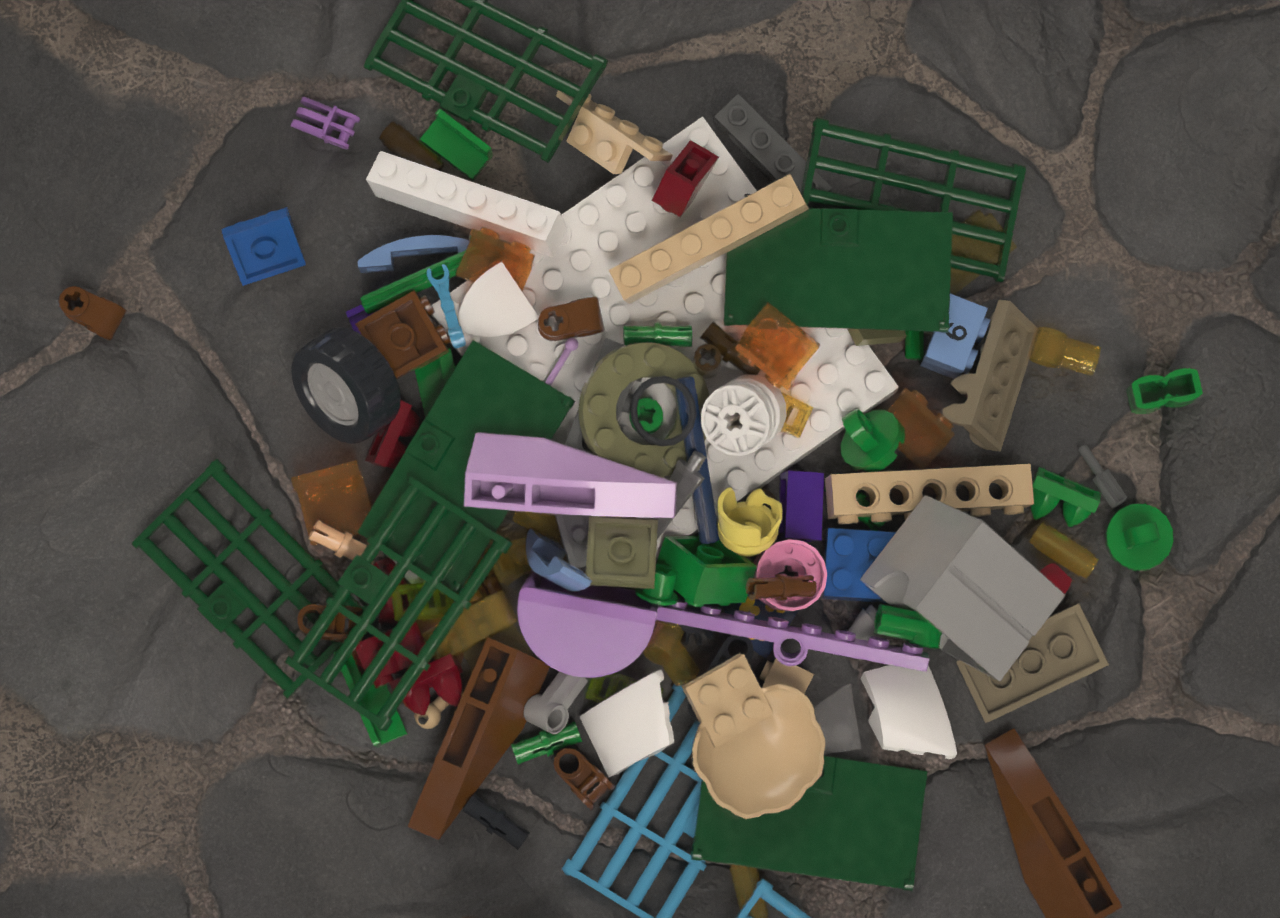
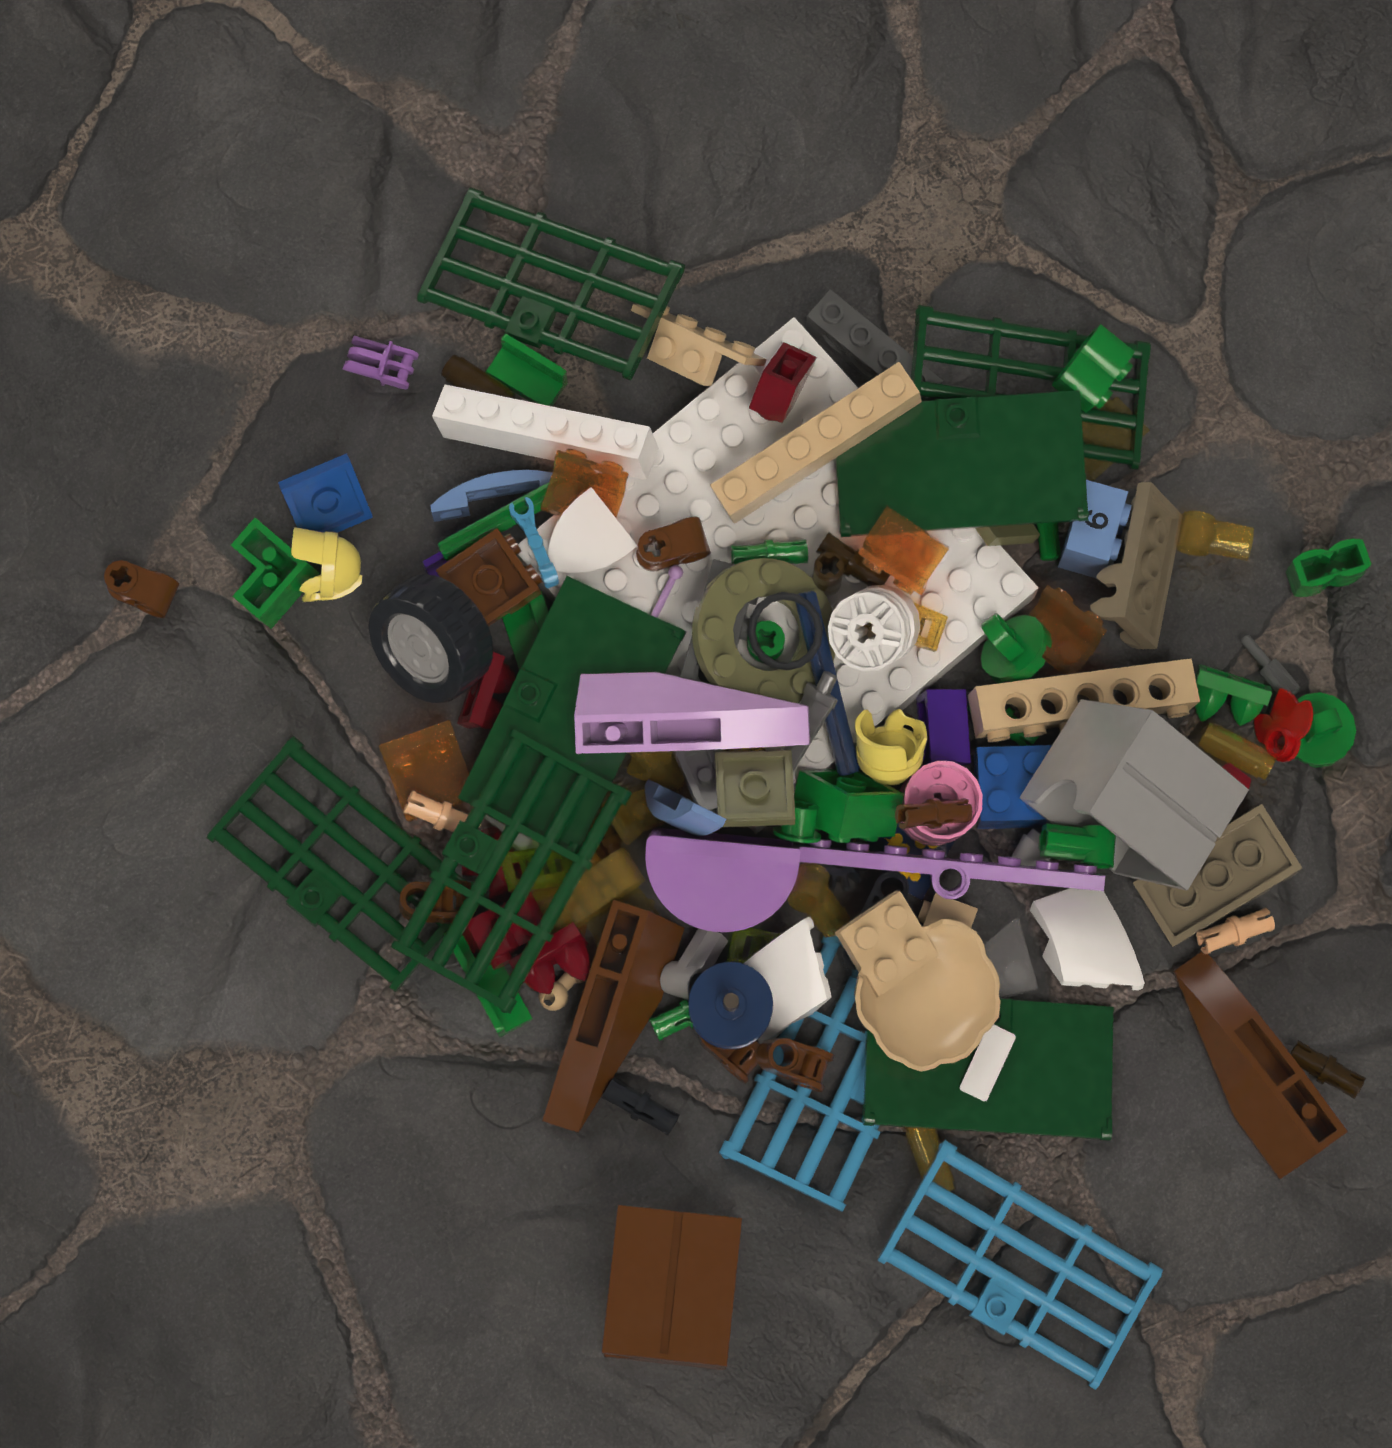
camera: 10 degrees left, 5 degrees down
(216, 310) = (277, 575): none -> green brick
(269, 304) = (338, 560): none -> light yellow helmet
(582, 742) = (730, 1005): none -> dark blue wheel
(641, 798) = (801, 1063): none -> reddish brown piece
(808, 813) = (987, 1062): none -> white sticker
(971, 189) = (1095, 367): none -> green brick
(1044, 714) = (1235, 930): none -> light nougat pin
(1108, 532) = (1284, 726): none -> red plate
(1112, 846) = (1327, 1069): none -> dark brown pin

